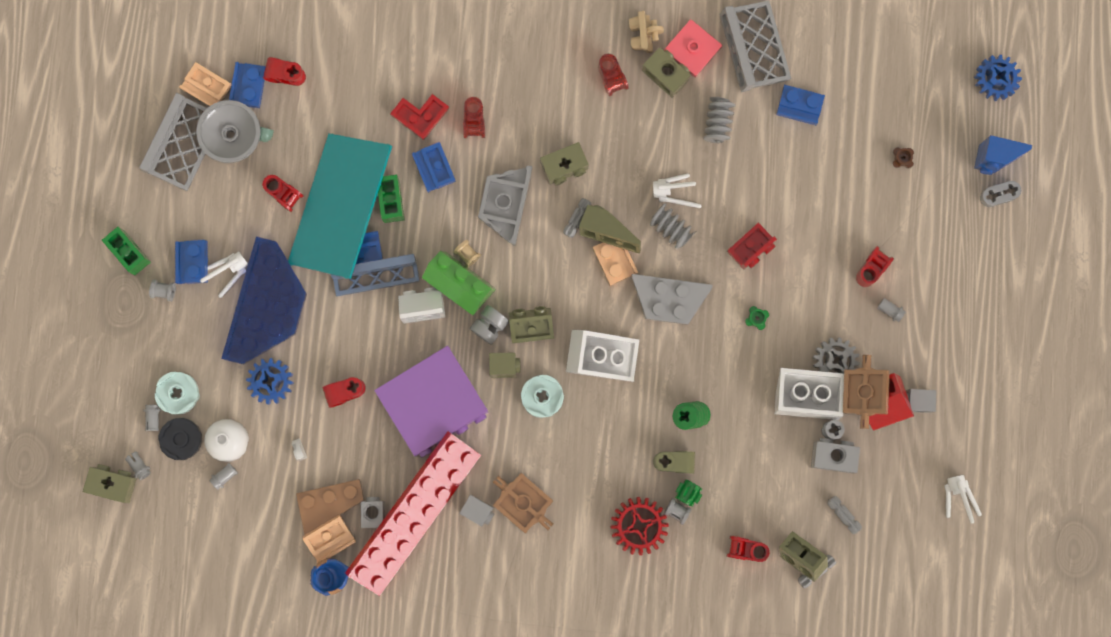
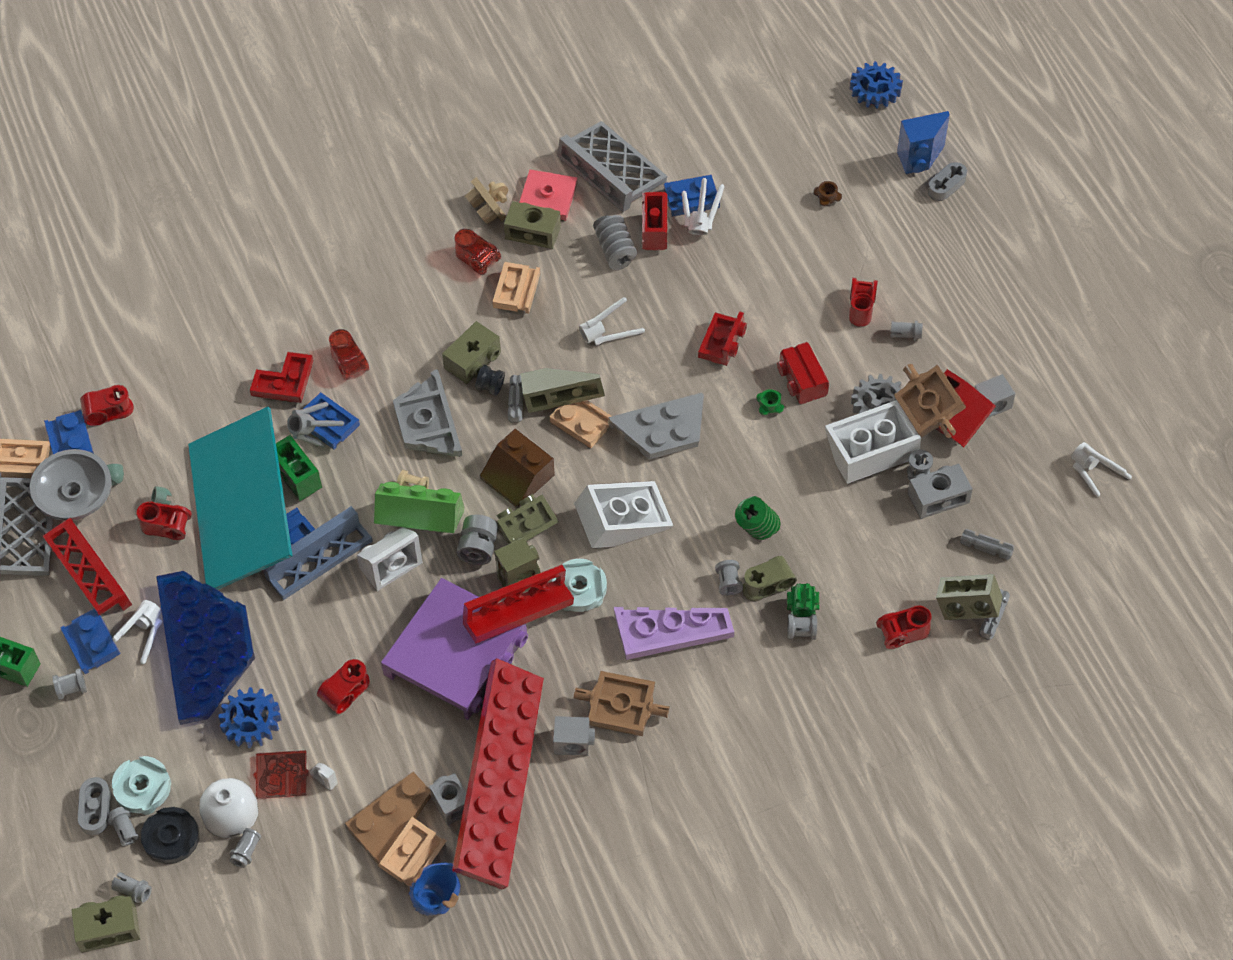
camera: 25 degrees left, 25 degrees down
(137, 391) = (94, 808): none -> light grey plate
(219, 201) = (96, 565): none -> red fence
(273, 431) = (281, 774): none -> clear red piece
(288, 170) = (160, 495): none -> sand green hinge
(408, 173) = (302, 424): none -> light grey plant
(486, 400) = (518, 607): none -> red fence
(546, 280) = (517, 468): none -> reddish brown slope
(565, 194) = (490, 380): none -> black wheel
(582, 462) = (658, 631): none -> lavender wing
(626, 122) = (516, 287): none -> light nougat plate
(648, 446) = (729, 577): none -> light grey bush
(656, 519) = (768, 675): red gear -> none
(671, 227) = (625, 357): light grey piece -> none
(757, 119) = (654, 221): none -> red brick
(792, 134) = (699, 222): none -> white plant
(793, 308) = (803, 373): none -> red brick

